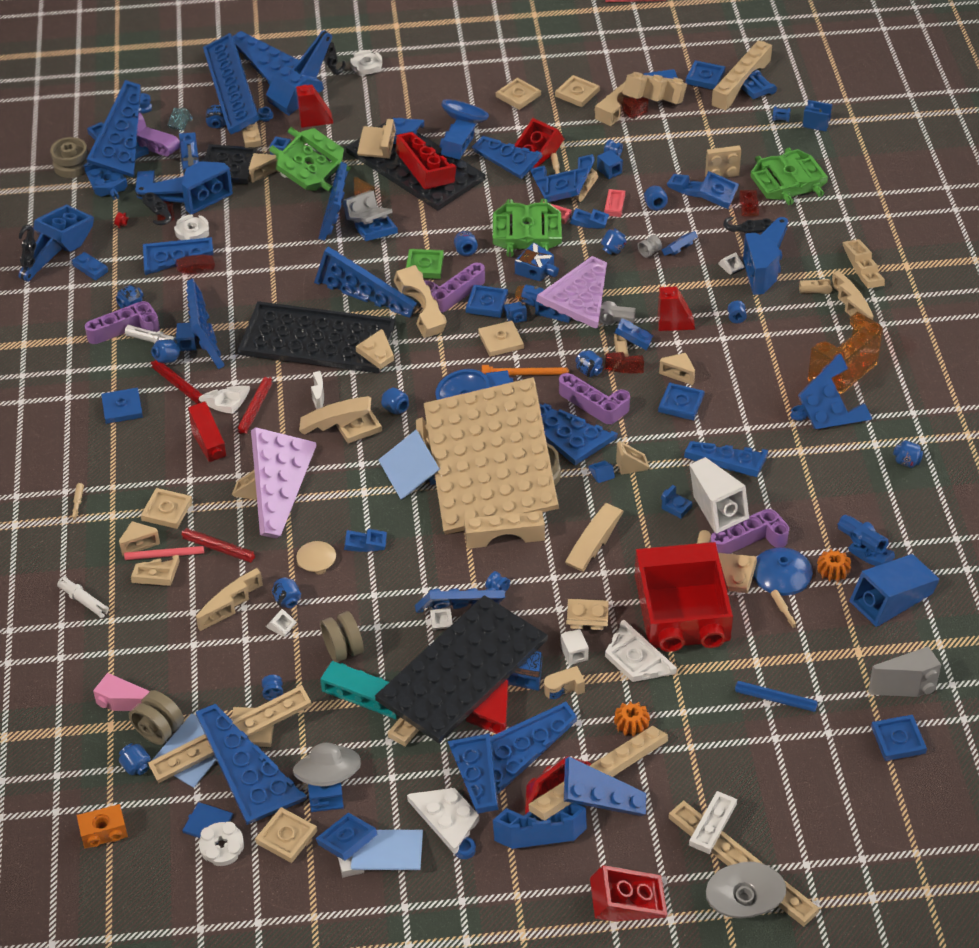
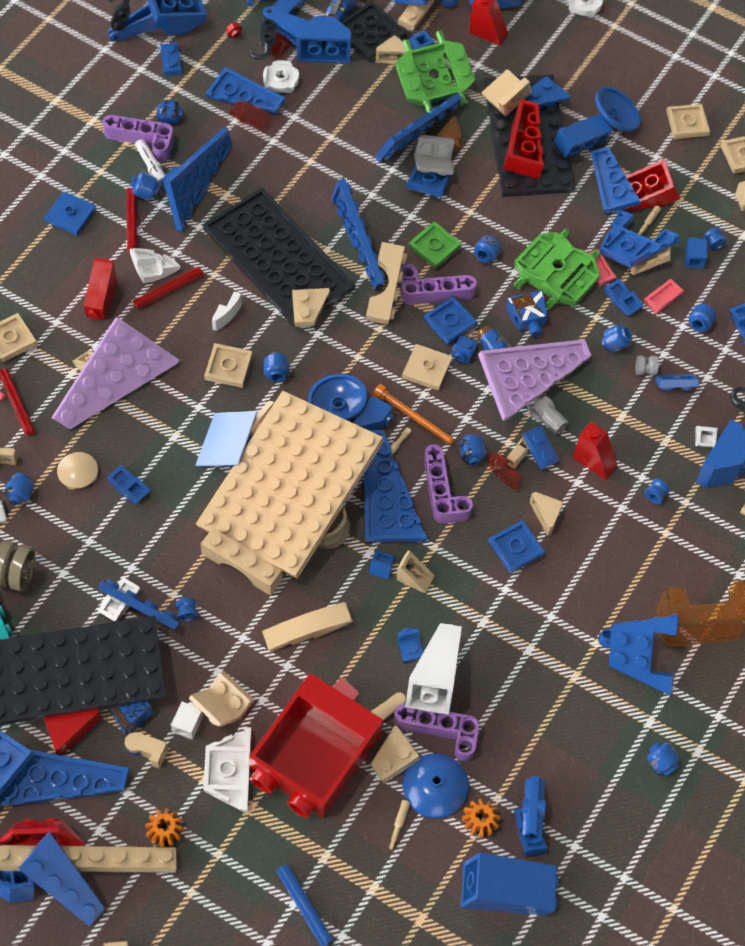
camera: 35 degrees right, 15 degrees up
(336, 413) = (212, 346): tan slope -> none
(726, 457) = (503, 640): blue wing -> none

